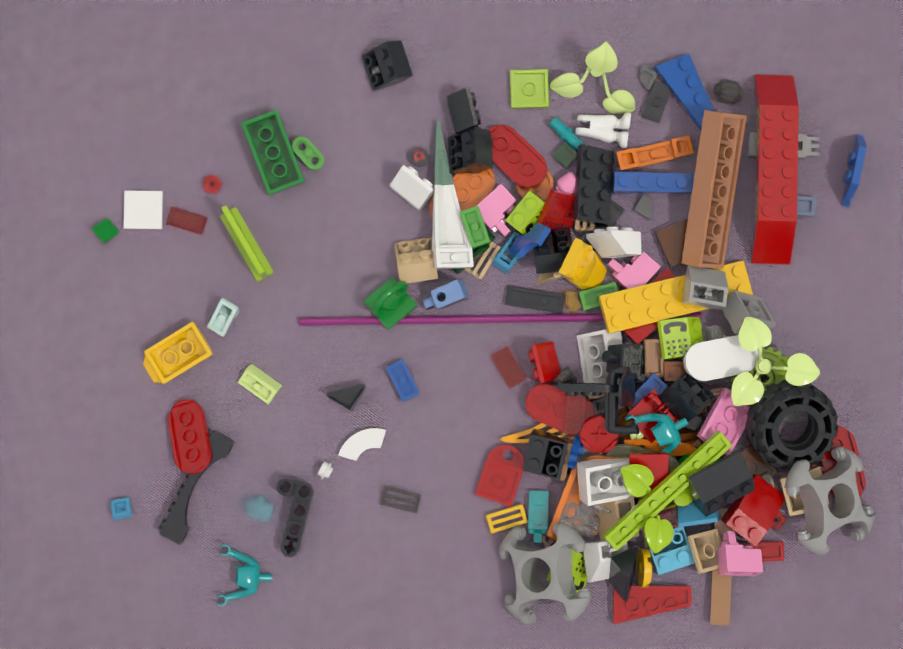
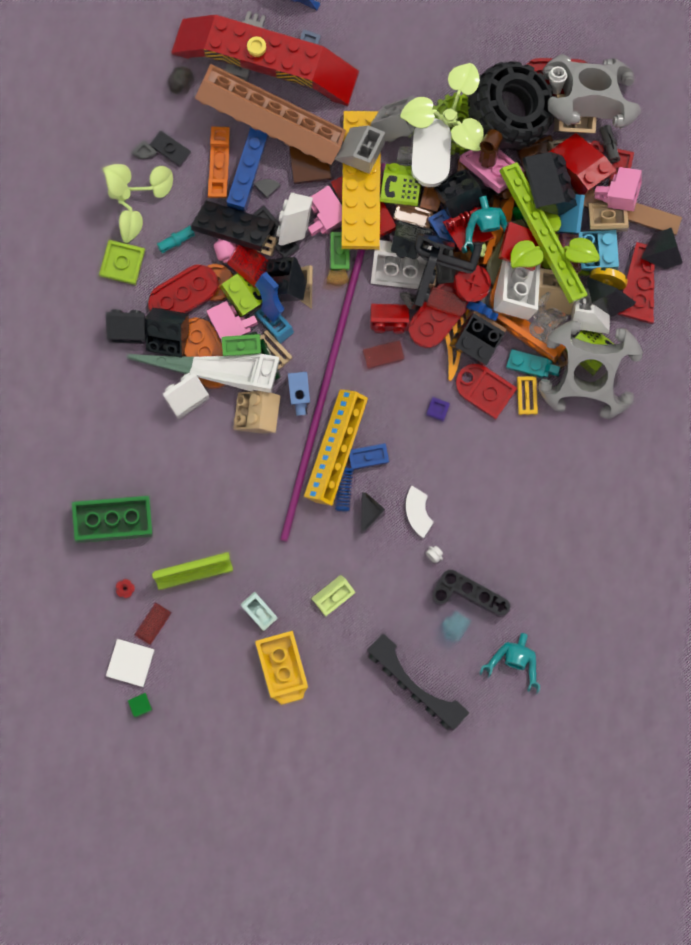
camera: 80 degrees left, 5 degrees down
(121, 508) = (418, 762): dark azure tile -> none
(189, 436) = (366, 675): red tile -> none
(308, 153) = (121, 485): bright green plate -> none
(347, 370) = (348, 471): none -> blue piece
(384, 495) = (489, 476): clear smoke tile -> none
(387, 65) = (59, 388): black slope -> none
(390, 303) = (290, 447): green tile -> none
(401, 346) = (335, 447): none -> yellow brick
(419, 157) = (157, 383): black tile -> none
(468, 435) = (437, 409): none -> dark purple tile
(535, 299) = (325, 312): black tile -> none
(565, 155) = (195, 246): dark green tile -> none
(583, 266) = (309, 254): yellow slope -> none
(602, 128) = (179, 202): white piece -> none
(686, 85) = (158, 117): blue wing -> none
(690, 614) = (663, 250): none -> black slope
(739, 414) = (489, 148): none -> reddish brown piece
(775, 155) = (256, 46): none -> light yellow tile
(784, 534) = (610, 144): none -> dark grey pin
(832, 463) = (557, 78): none -> white cone

